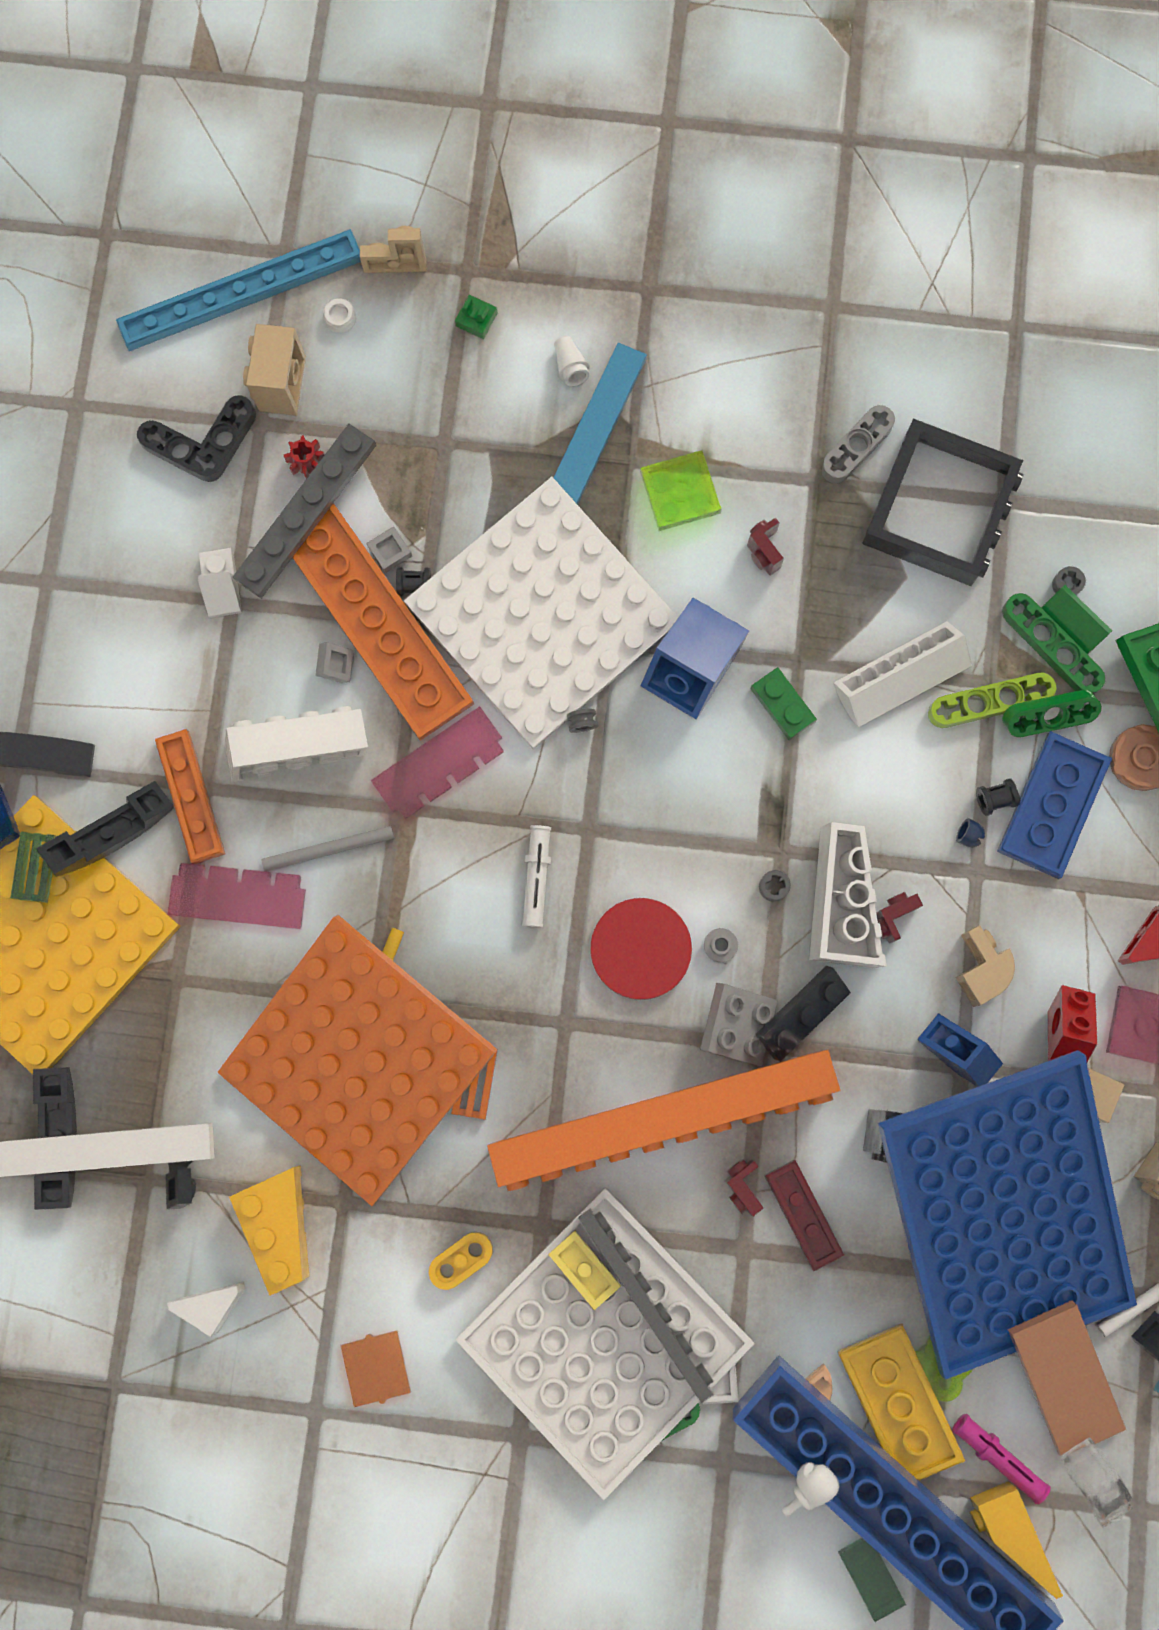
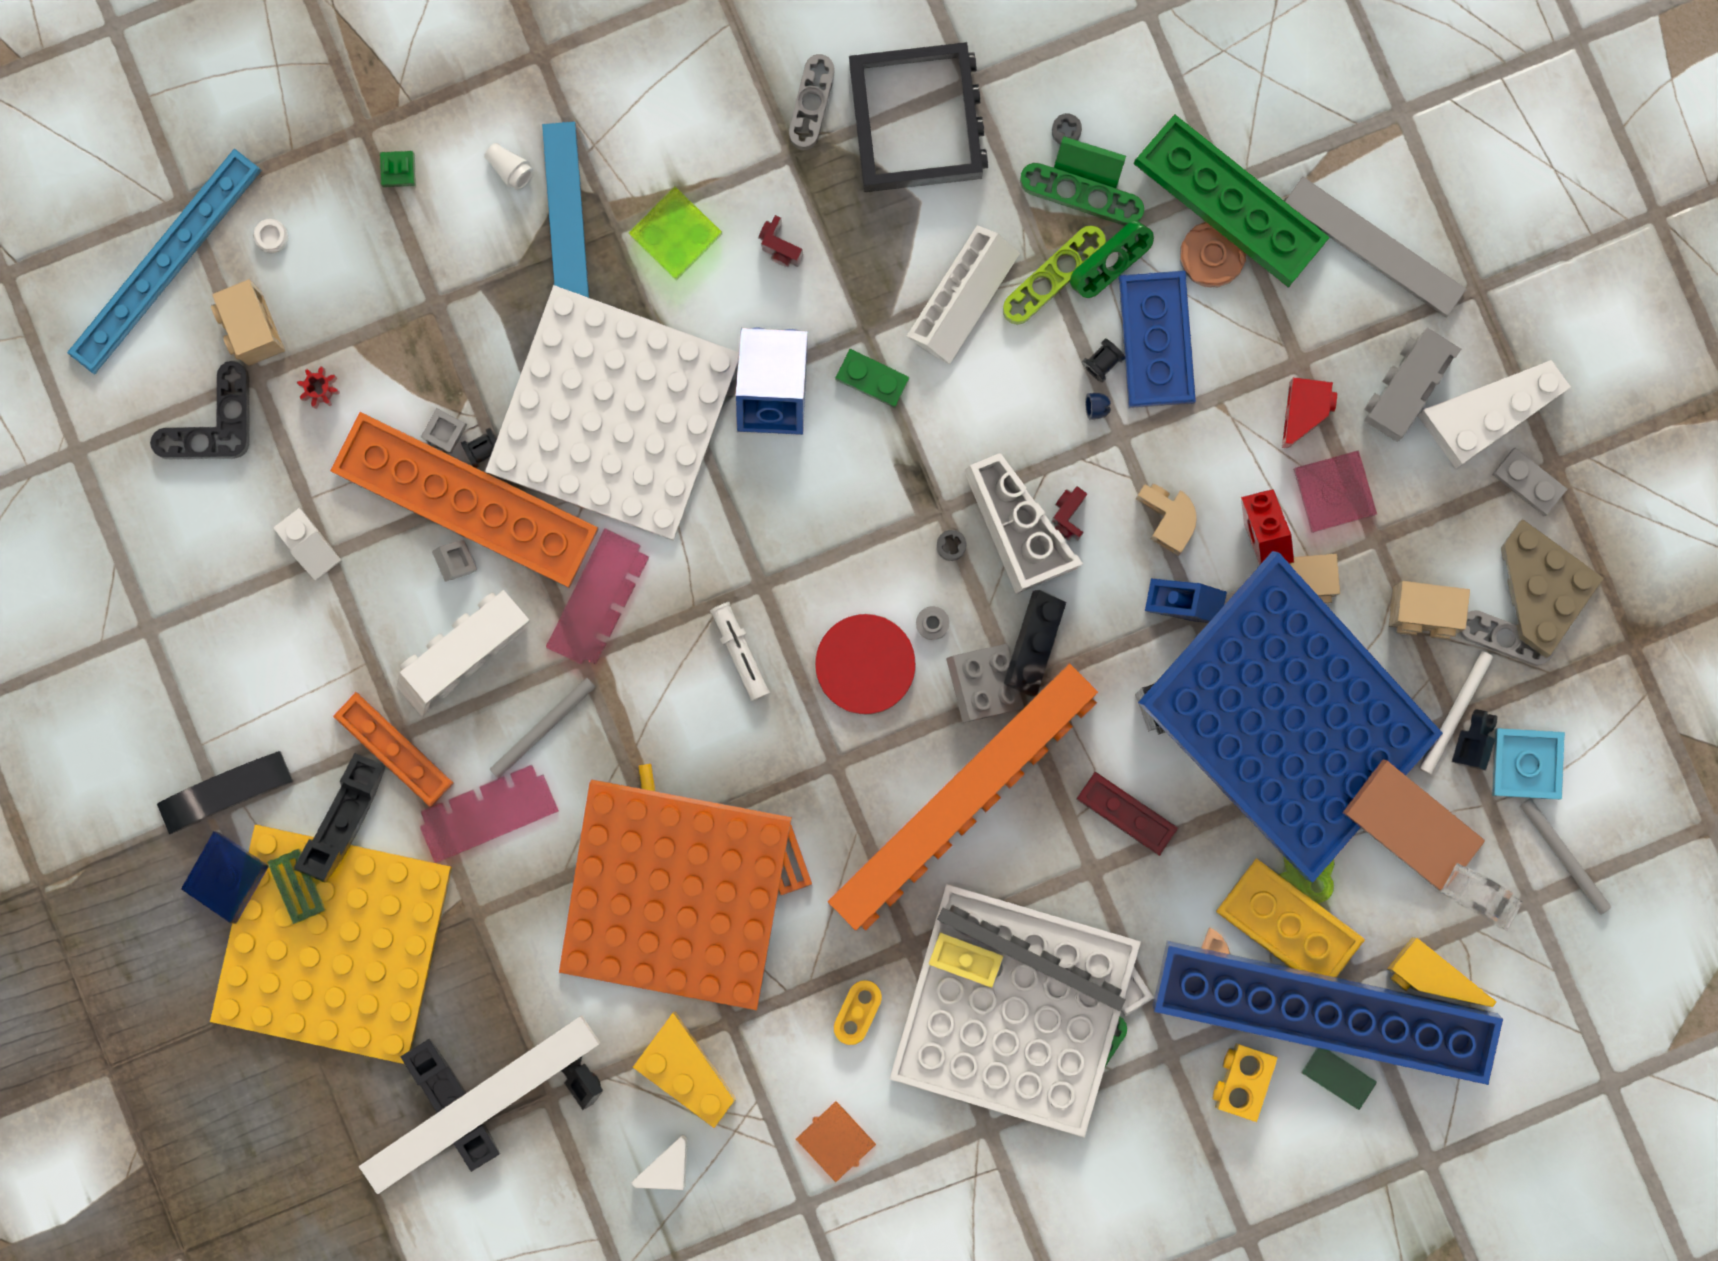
camera: 25 degrees left, 5 degrees up
(304, 511) = (349, 438): dark grey plate -> none
(402, 254) = (299, 146): tan plate -> none
(582, 720) = (703, 491): dark grey bush -> none
(742, 1195) = (1066, 826): dark red bracket -> none
(790, 1540) = (1253, 1084): none -> yellow brick
(814, 1488) = (1248, 1026): white piece -> none
(989, 1449) = (1392, 921): dark pink pin -> none

